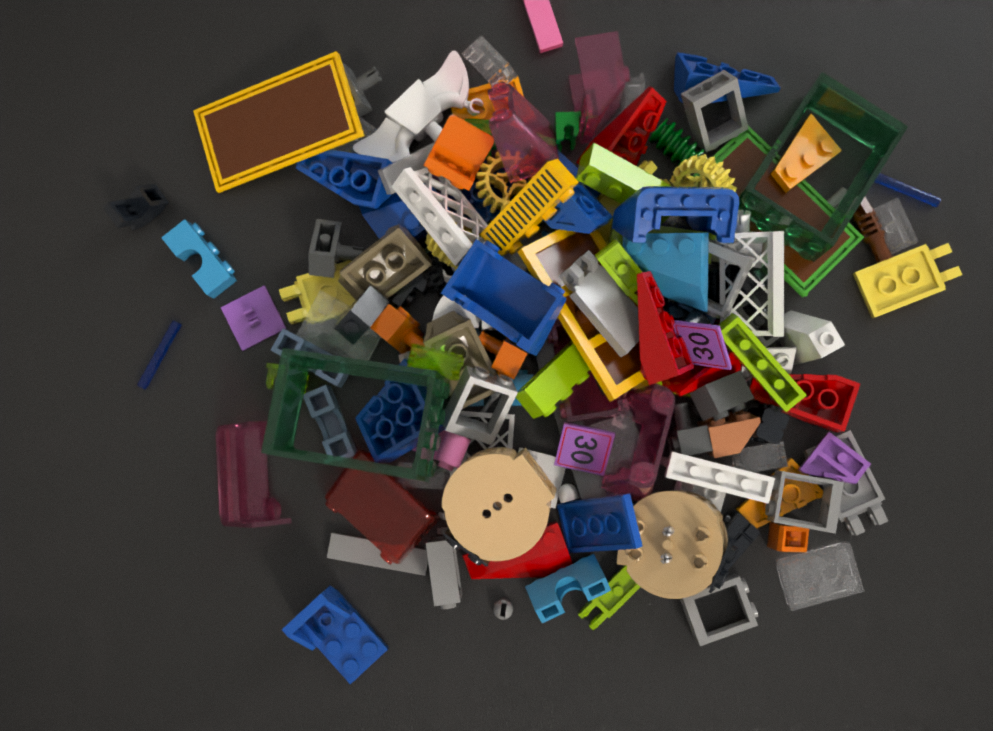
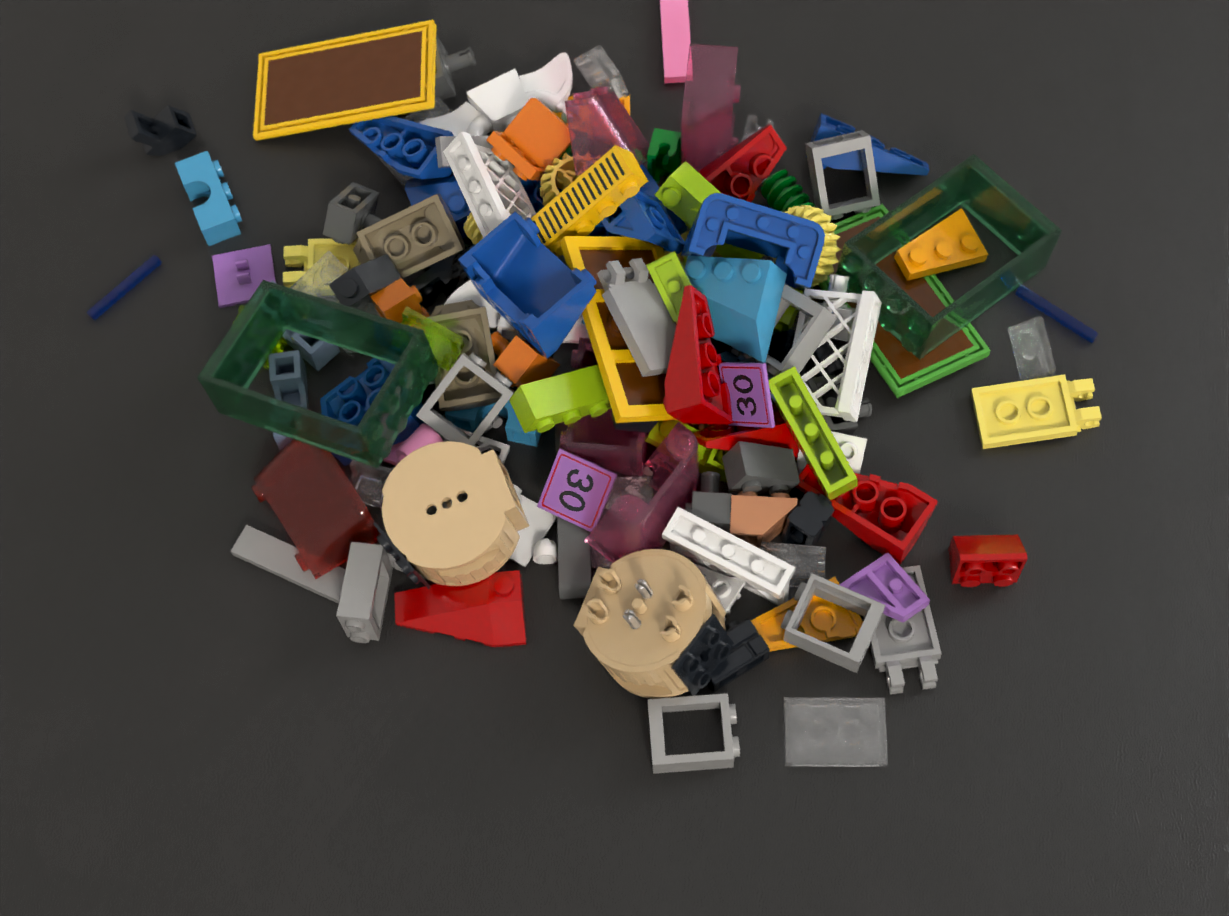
camera: 15 degrees right, 20 degrees down
(244, 477) = (171, 432): clear pink windscreen -> none
(338, 633) = (208, 633): blue bracket -> none
(497, 608) = (428, 670): light grey hinge -> none
(549, 591) = (487, 655): dark azure arch -> none
(600, 524) = (567, 575): blue tile -> none
(621, 587) = (562, 684): lime hinge -> none
(787, 538) = (807, 671): orange slope -> none
(810, 335) = (887, 430): white slope -> none
(871, 230) = (1002, 343): reddish brown hinge -> none
(902, 415) = (986, 559): none -> red slope

